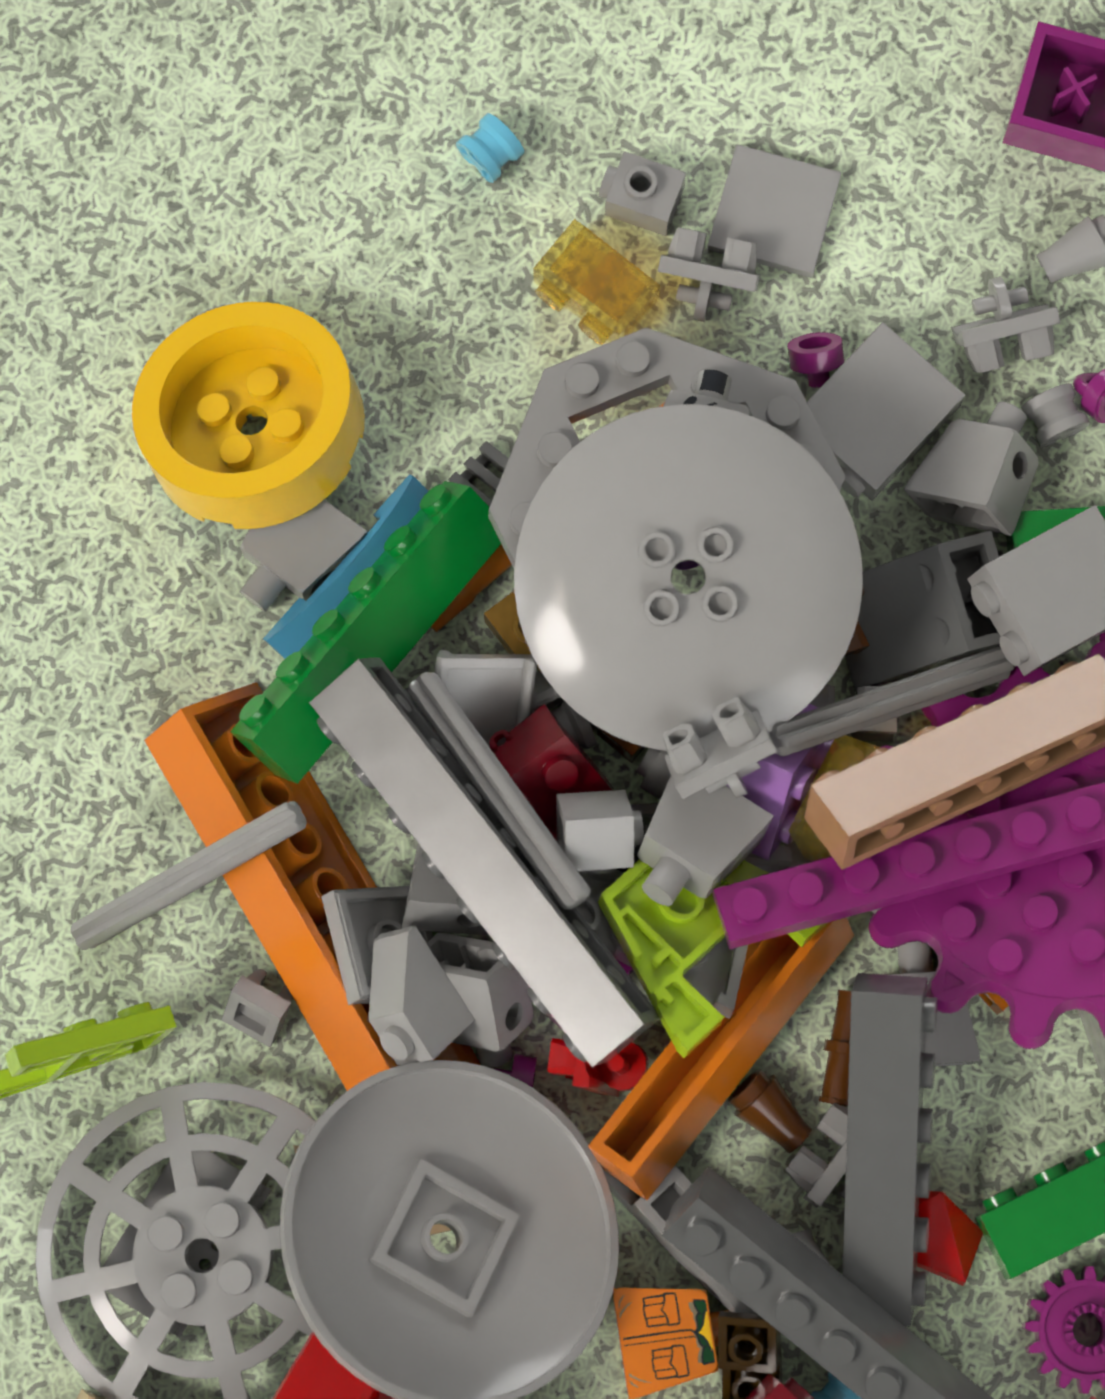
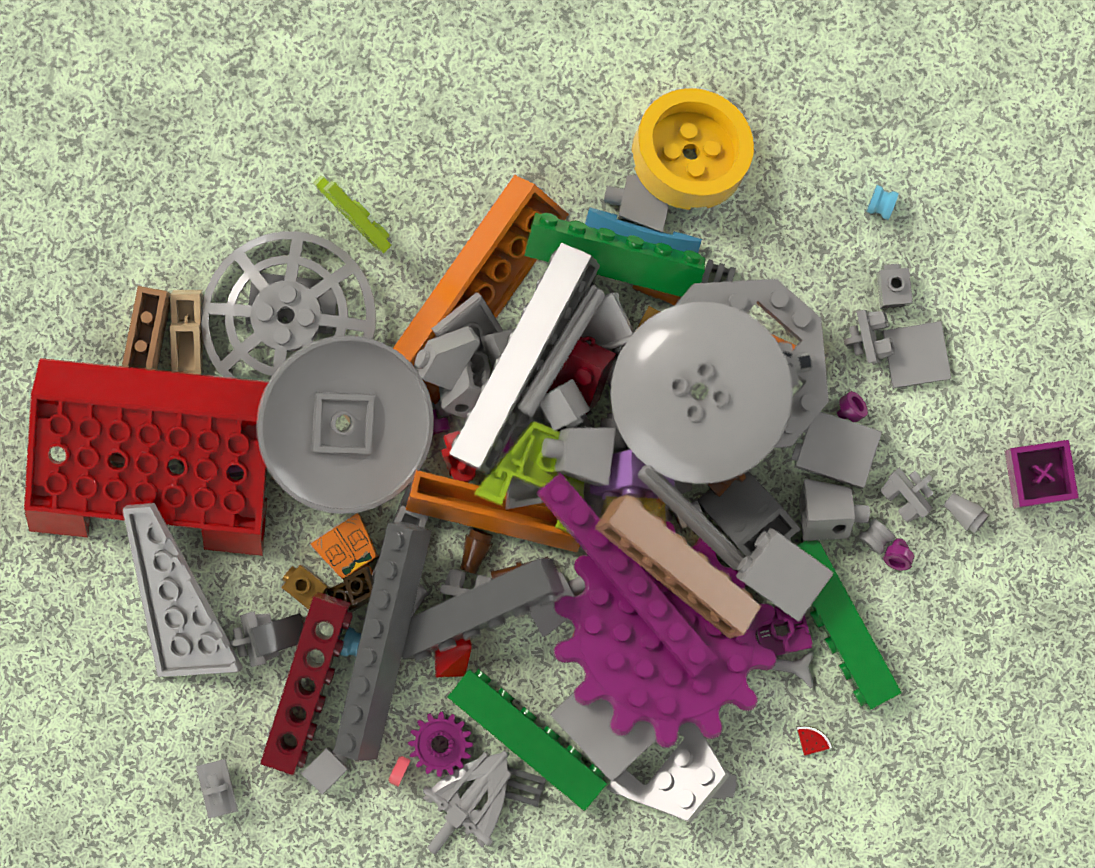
camera: 70 degrees right, 5 degrees up
(189, 875) = (458, 225): light grey axle -> none
(257, 1009) = (412, 287): light grey tile -> none
(594, 284) = (837, 284): clear yellow brick -> none
(720, 755) = (622, 446): light grey hips -> none

